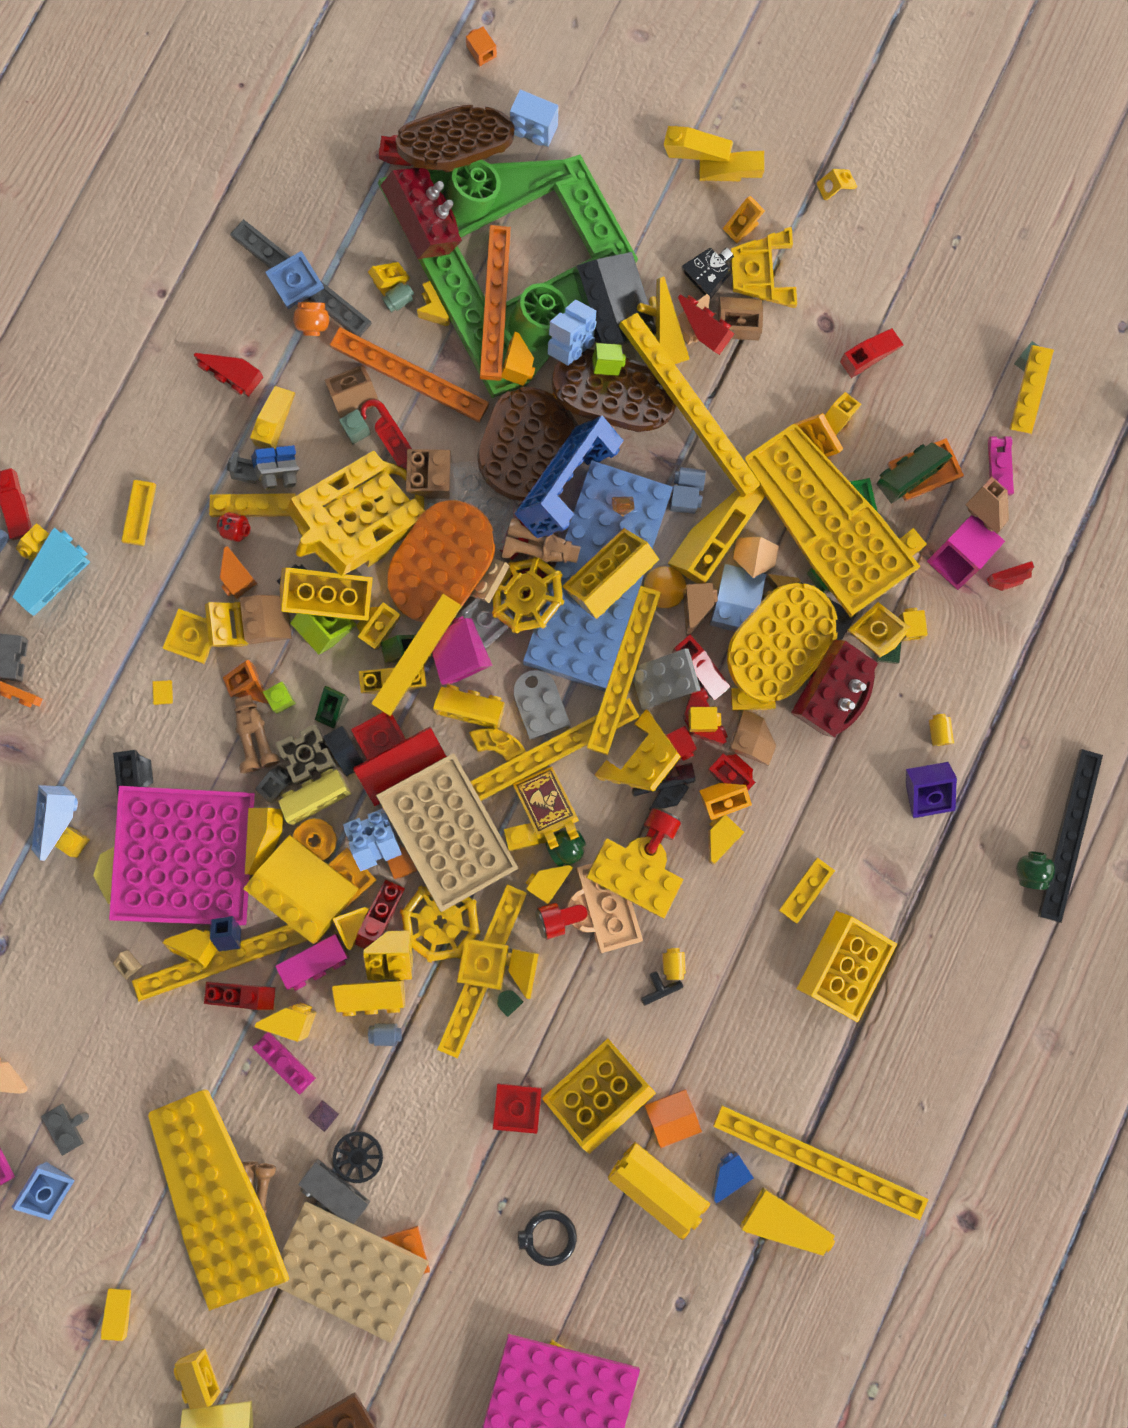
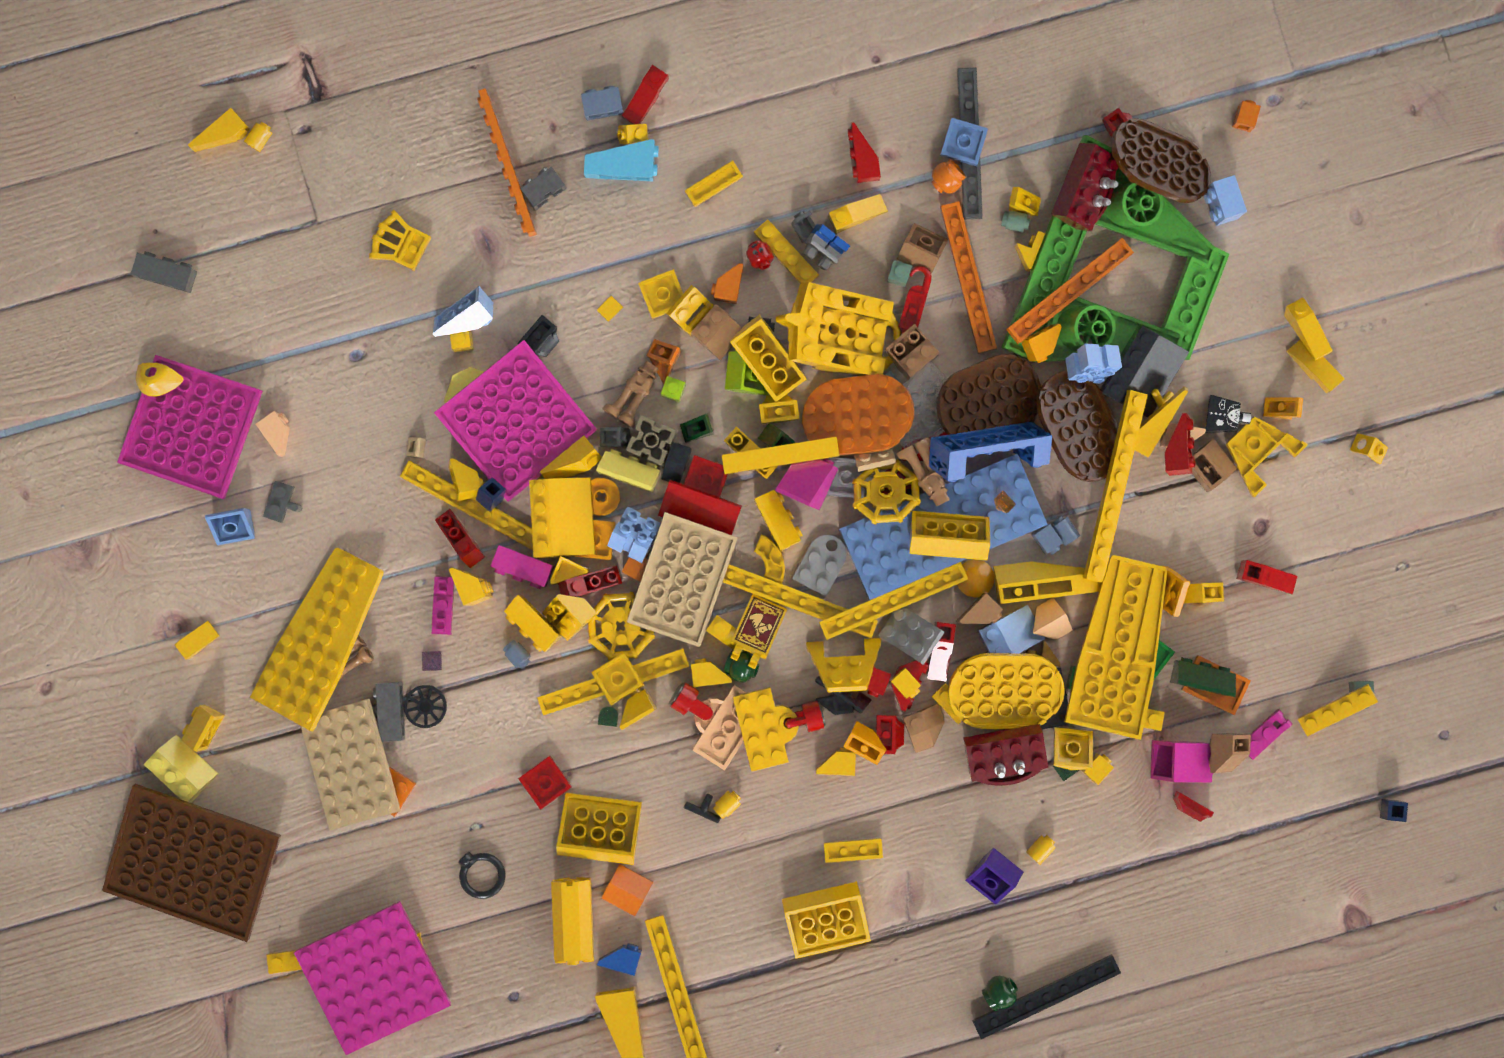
camera: 60 degrees right, 5 degrees up
(608, 359) = (1097, 403): lime brick -> none

